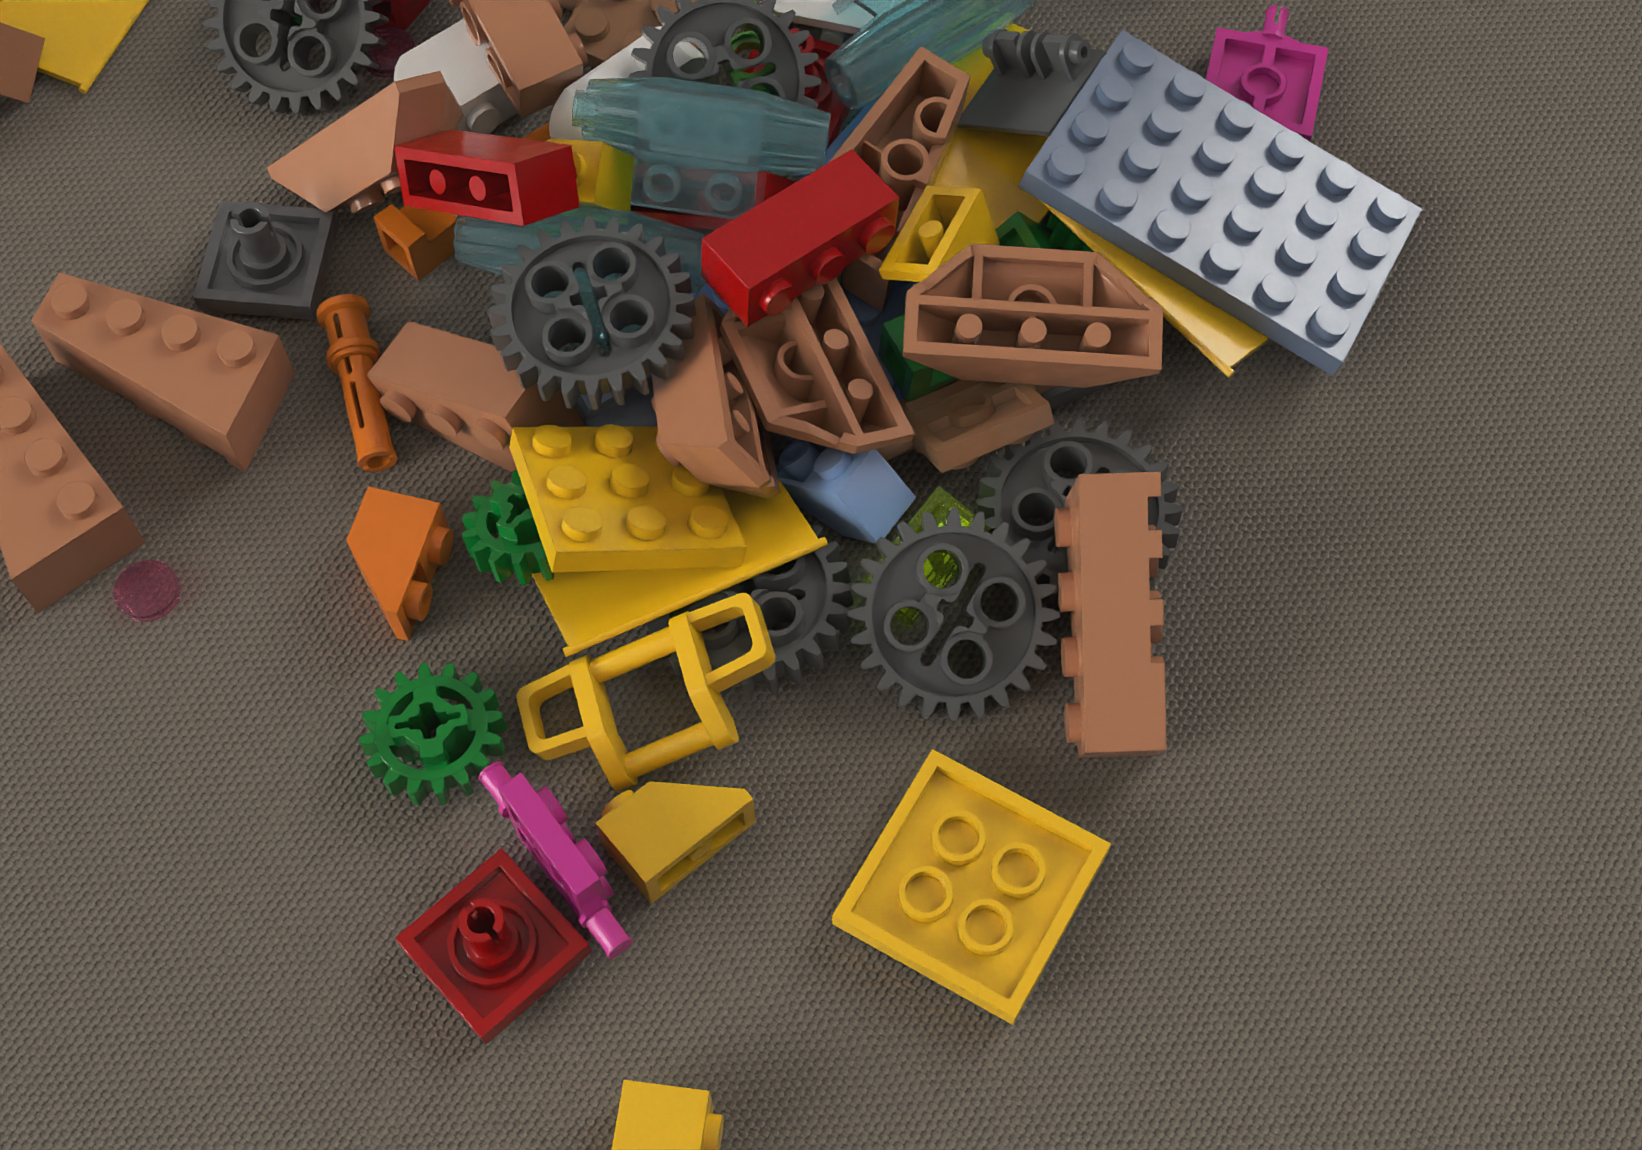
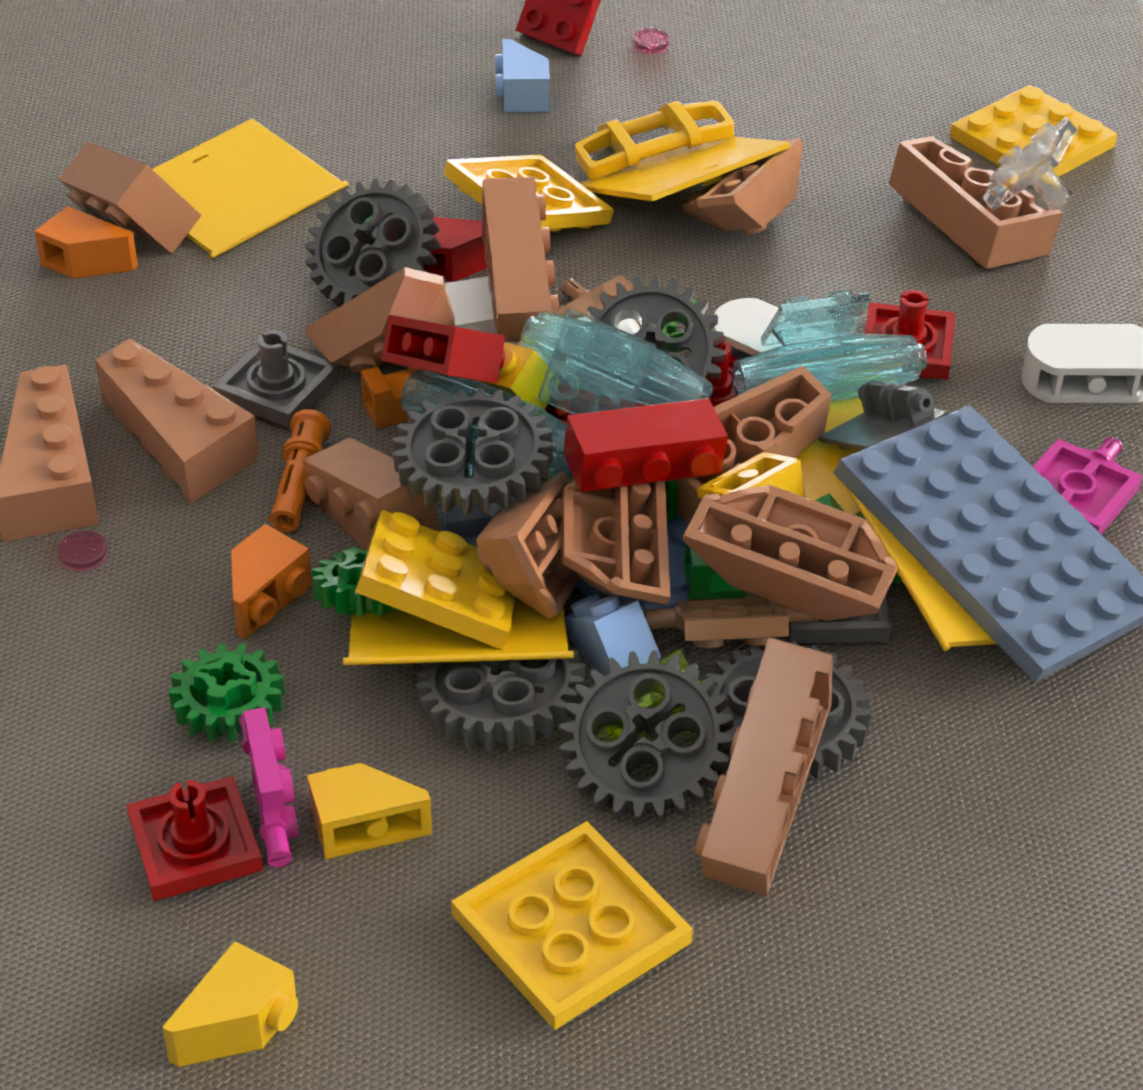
camera: 20 degrees right, 20 degrees down
(702, 683) = (432, 711): yellow bar -> none

